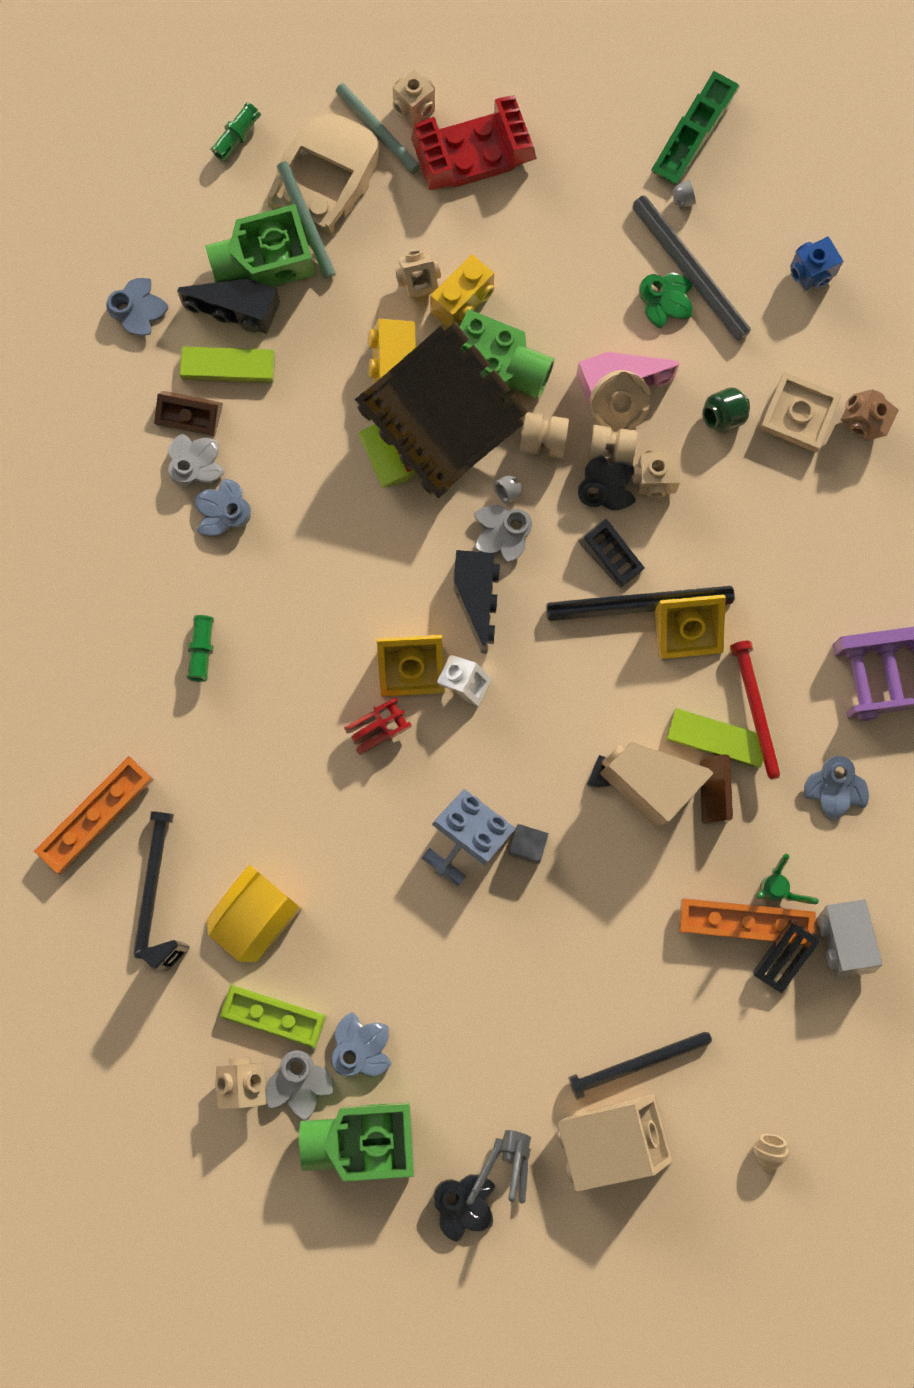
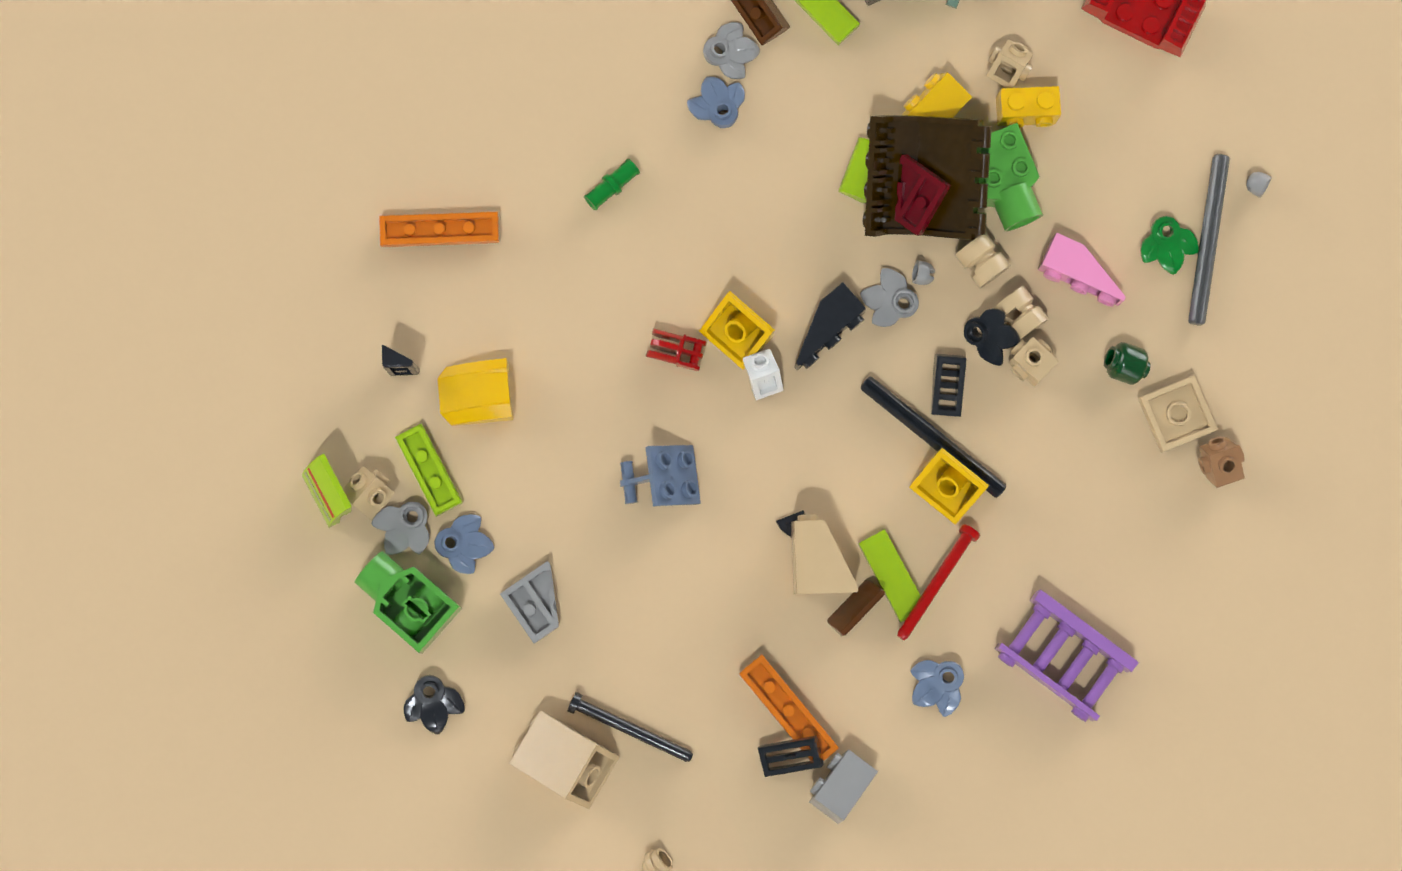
camera: 40 degrees right, 5 degrees up
(151, 880) = (435, 307): black bar -> none
(205, 1117) = (326, 490): none -> lime slope
(448, 429) = (918, 195): none -> dark red wing
(464, 1038) = (534, 602): none -> light grey wing
(515, 1151) = (497, 704): dark grey plant -> none
(528, 844) = (698, 521): black slope -> none
(620, 400) = (1058, 287): tan tile -> none
(695, 128) = (1316, 142): green slope -> none
(778, 887) = (831, 708): green plant -> none
(816, 263) = (1296, 321): blue brick -> none

